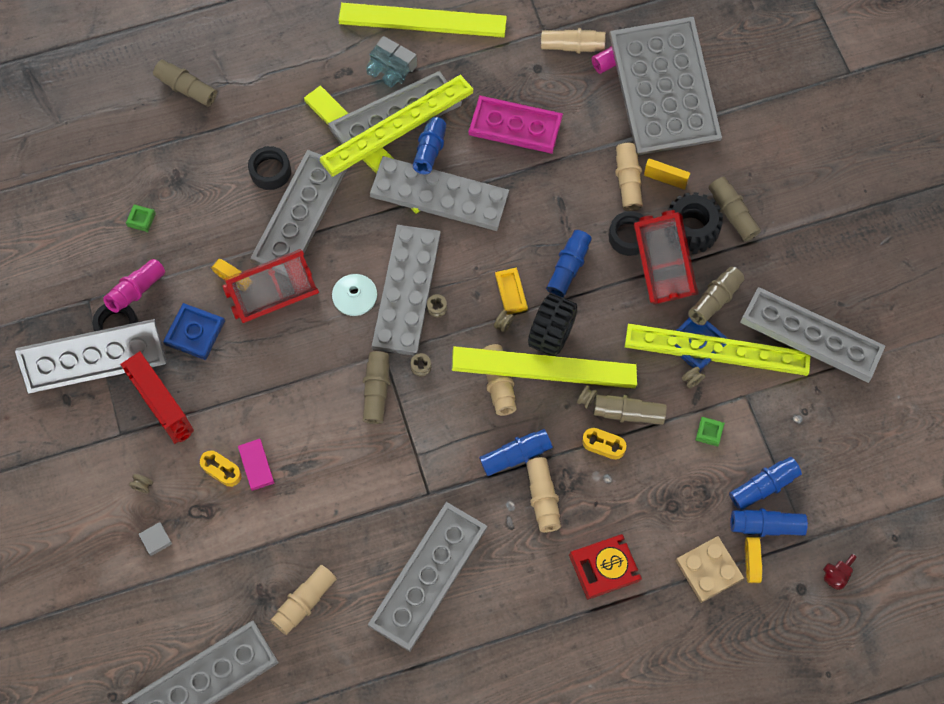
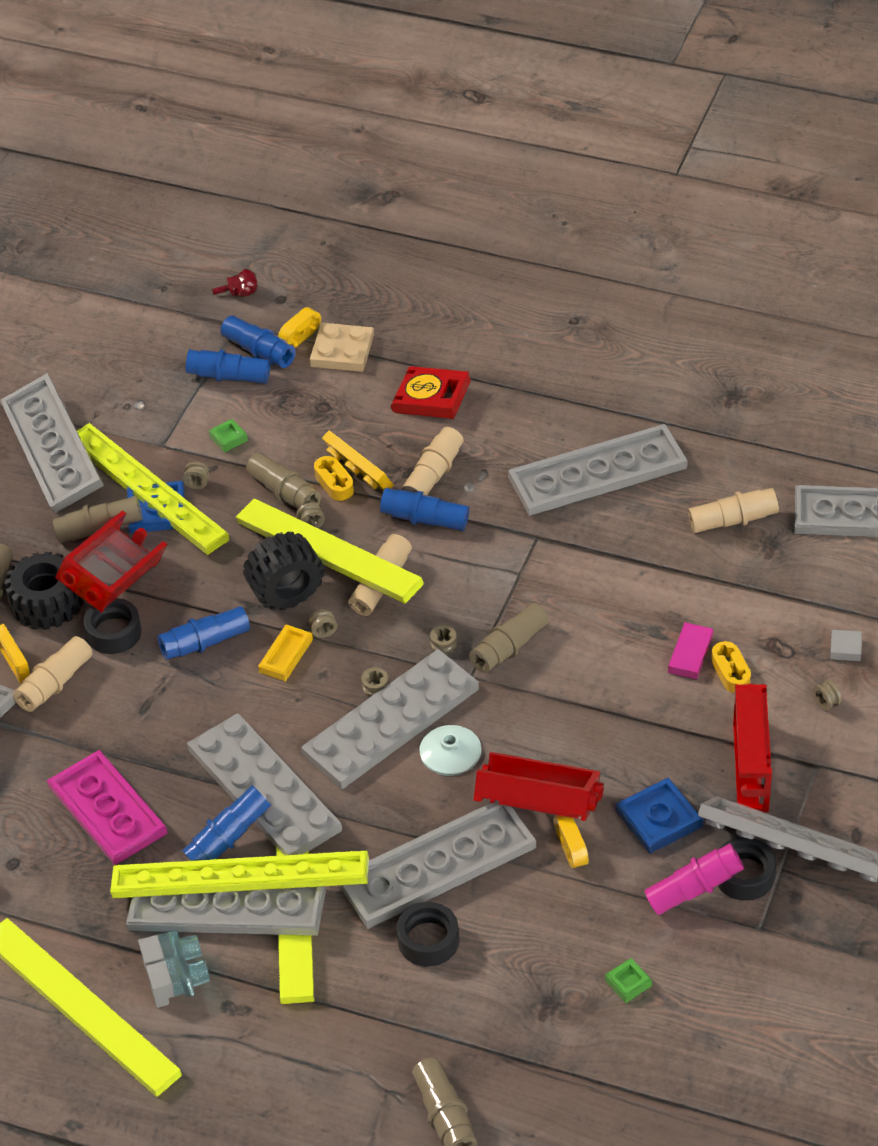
camera: 140 degrees left, 20 degrees down
(597, 462) = (356, 462): none -> yellow plate

